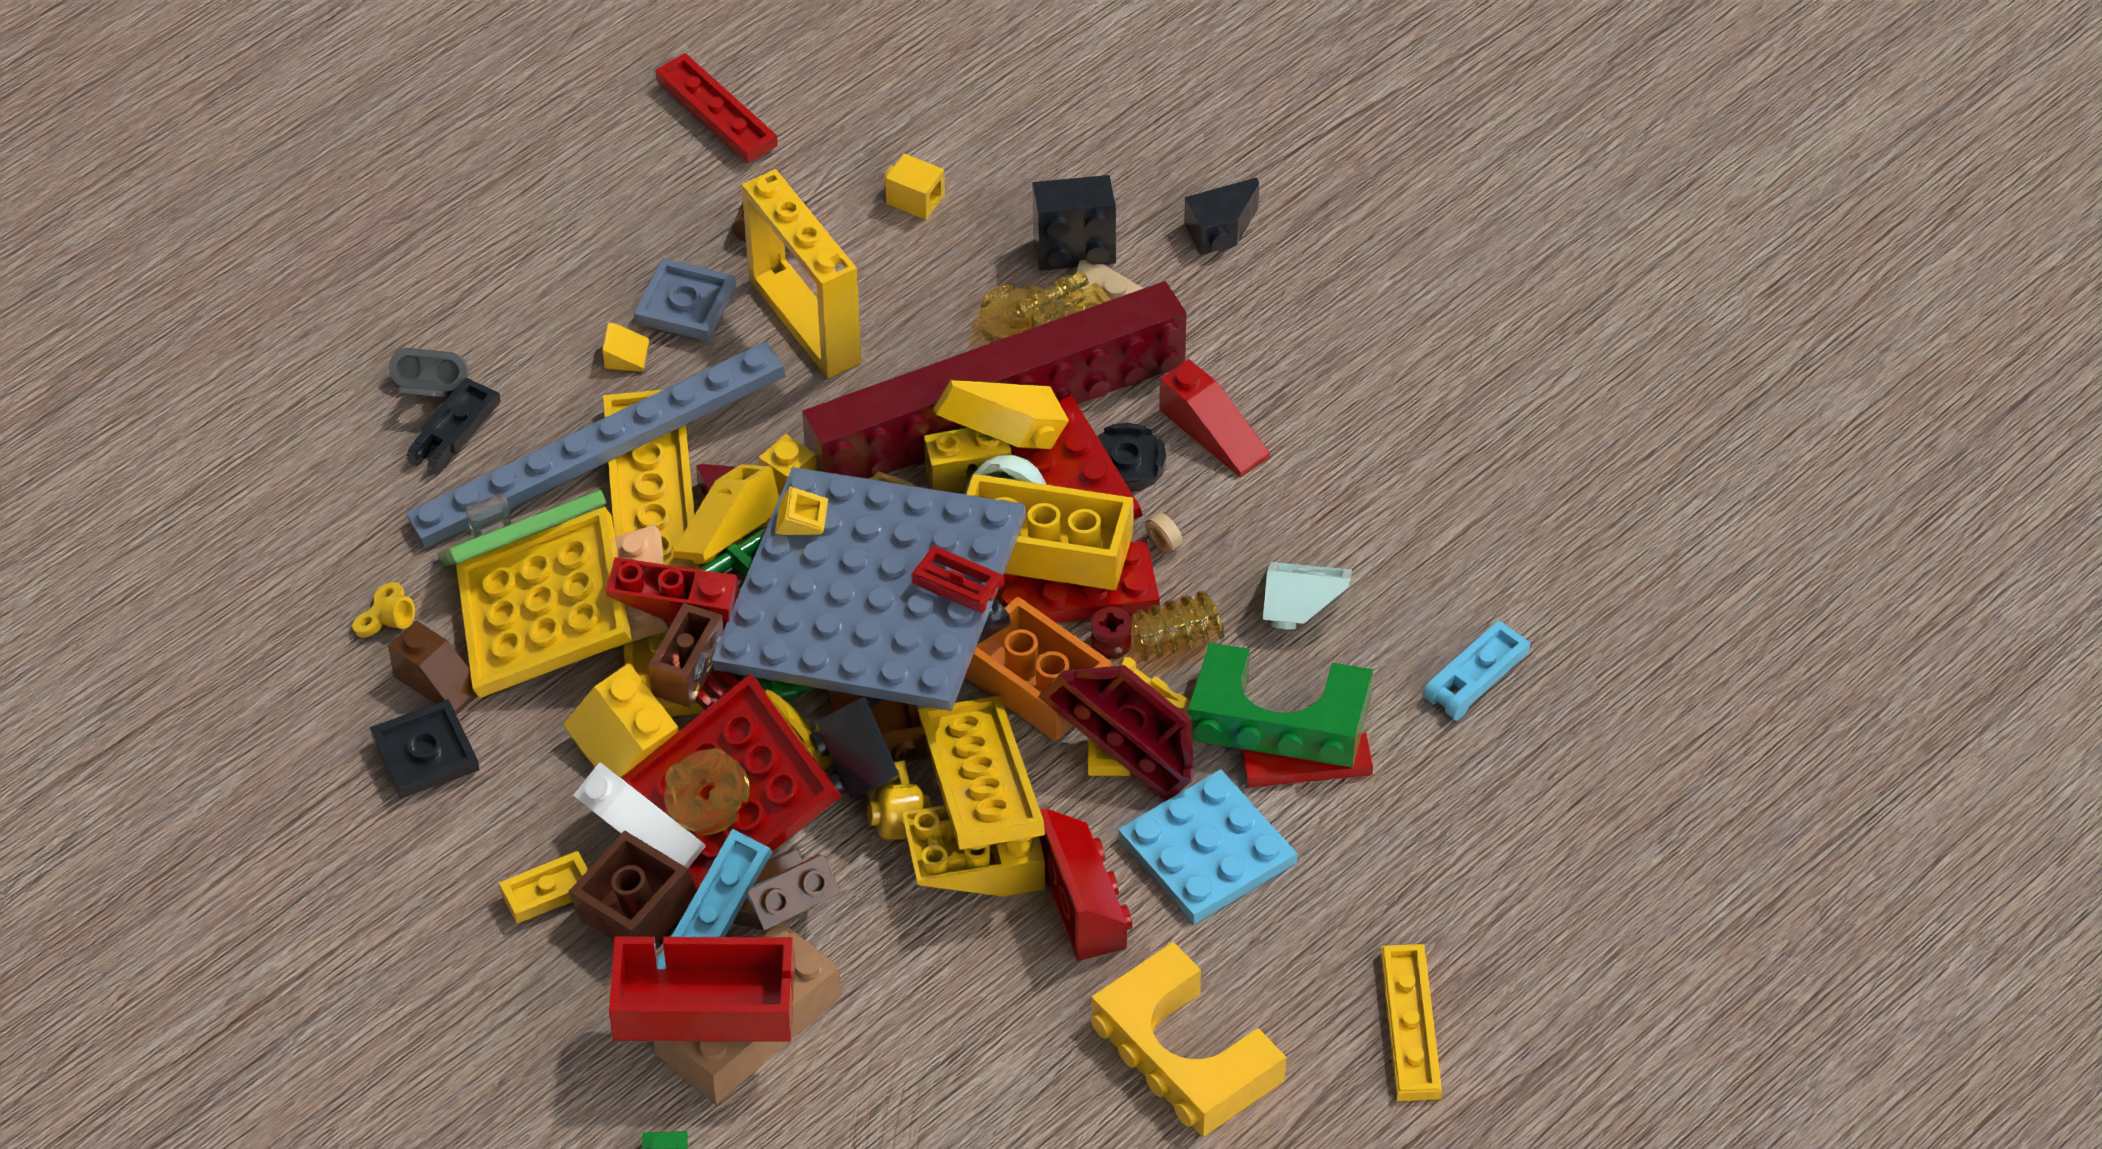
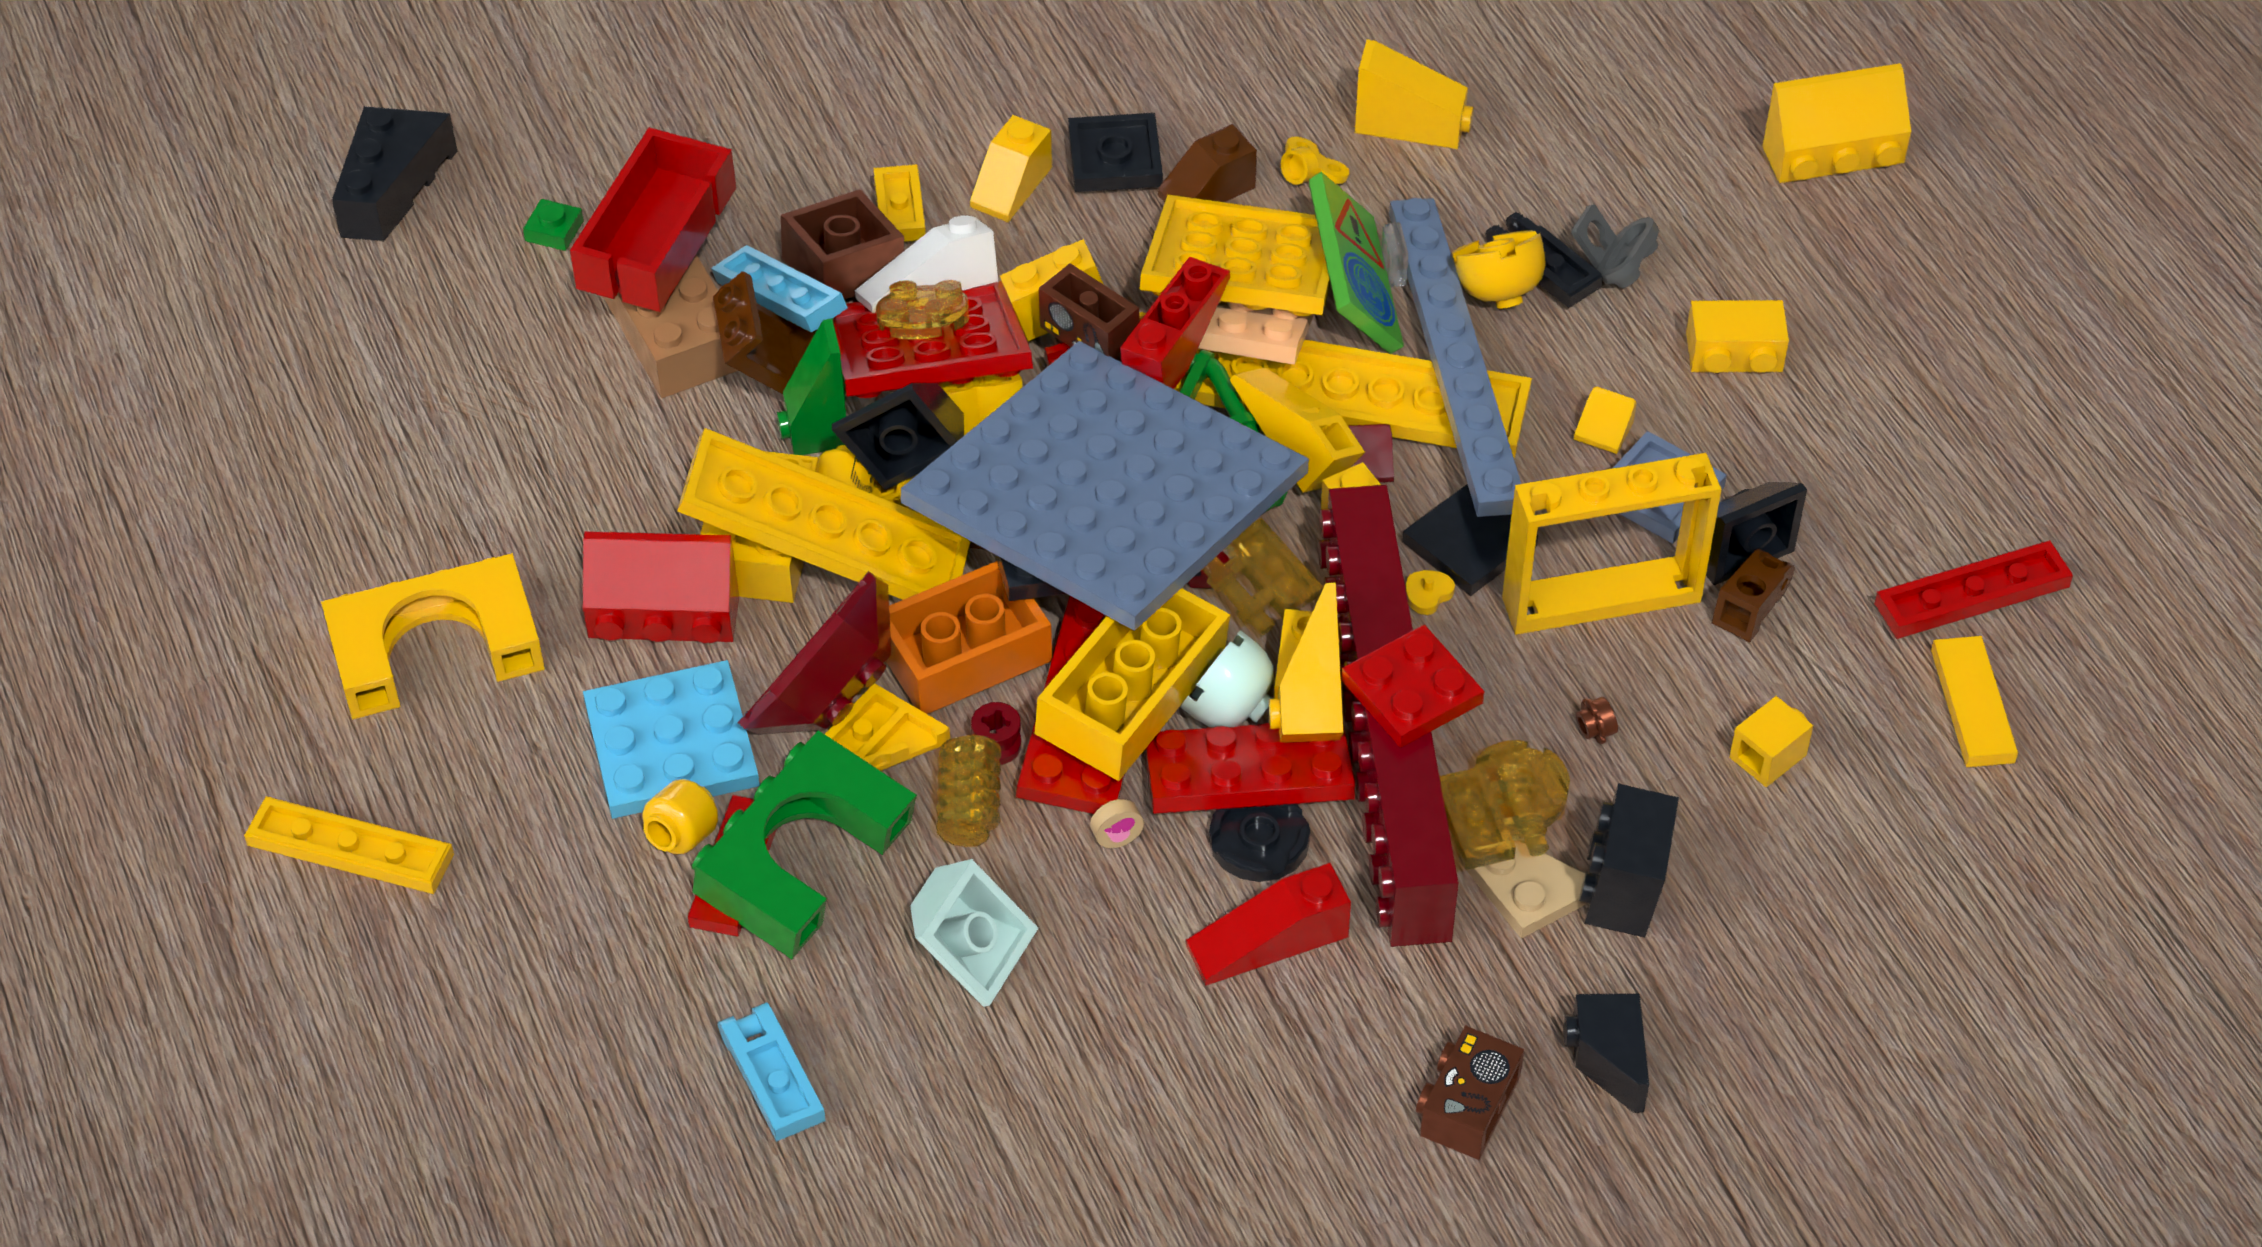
camera: 110 degrees right, 0 degrees up
(242, 260) = (1838, 123): none -> yellow slope
(300, 550) = (1408, 100): none -> yellow slope
(476, 813) = (1012, 168): none -> yellow slope
(485, 432) = (1502, 267): none -> yellow cylinder
(505, 283) = (1737, 336): none -> yellow brick
(712, 227) = (1754, 520): none -> black slope
(779, 406) = (1460, 543): none -> black tile
(801, 513) = (1220, 431): yellow slope -> none
(819, 95) = (1974, 701): none -> yellow tile
(833, 828) = (814, 396): none -> green slope
(934, 287) = (1597, 719): none -> copper plate
(952, 583) = (1052, 527): red tile -> none
(1004, 340) = (1412, 685): none -> red plate
(1288, 799) = (679, 817): none -> yellow head
(1297, 278) = (1470, 1092): none -> copper brick

